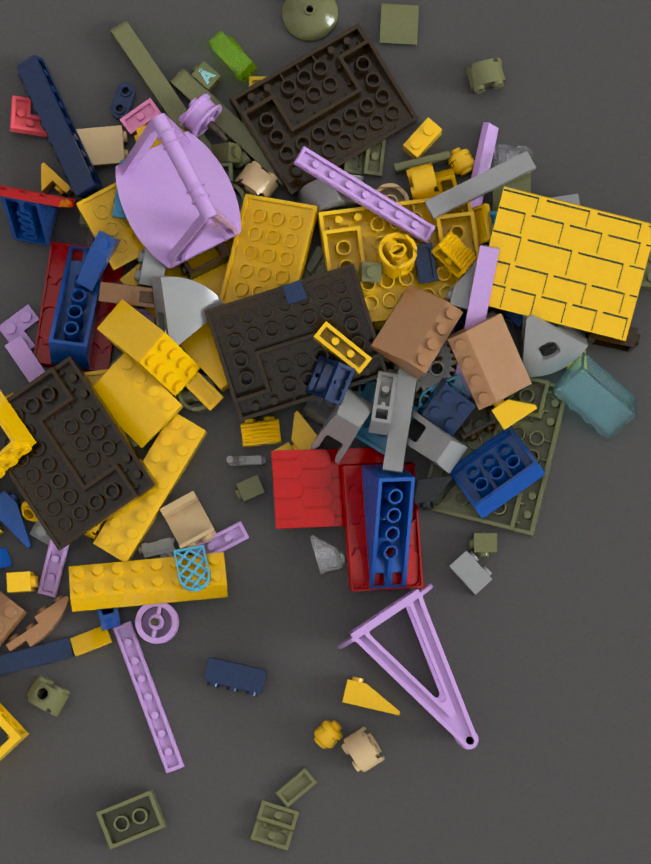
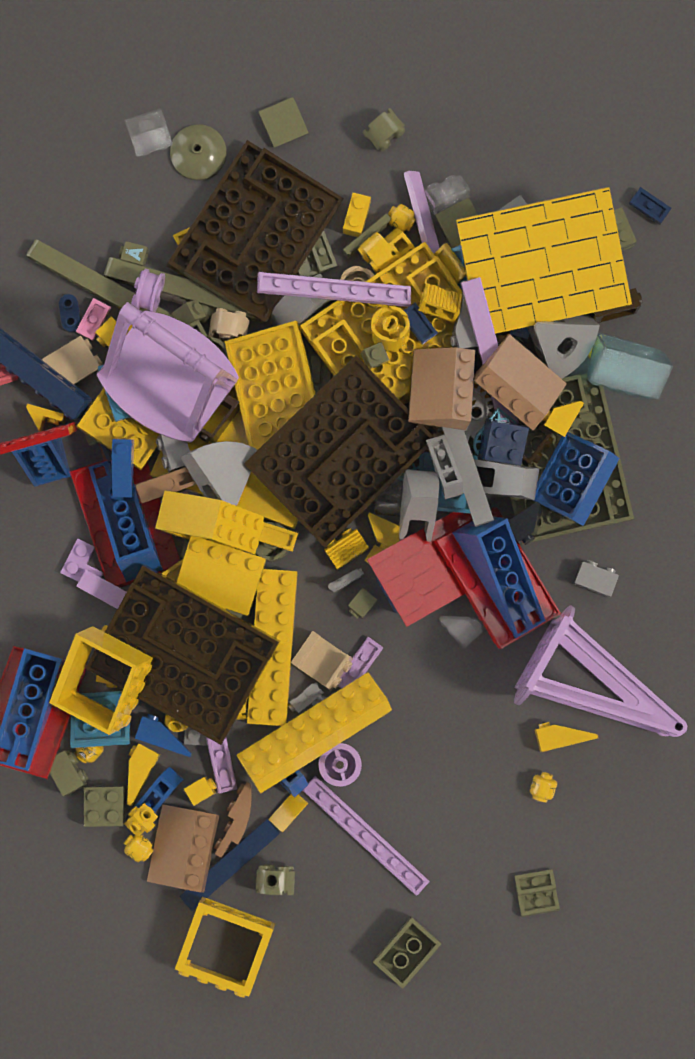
camera: 30 degrees left, 0 degrees up
(193, 572) = (341, 711): medium azure window -> none
(232, 55) = (149, 223): clear neon green piece -> none
(235, 676) = (435, 777): dark blue brick -> none
(294, 292) = (316, 406): dark blue tile -> none
(296, 787) = (538, 849): olive tile -> none
(324, 384) = (398, 469): dark blue window -> none
(342, 347) = (385, 435): yellow brick -> none
(363, 750) = (582, 785): tan brick -> none
(480, 185) = (431, 230): light grey tile -> none
(483, 544) = (594, 547): olive brick -> none

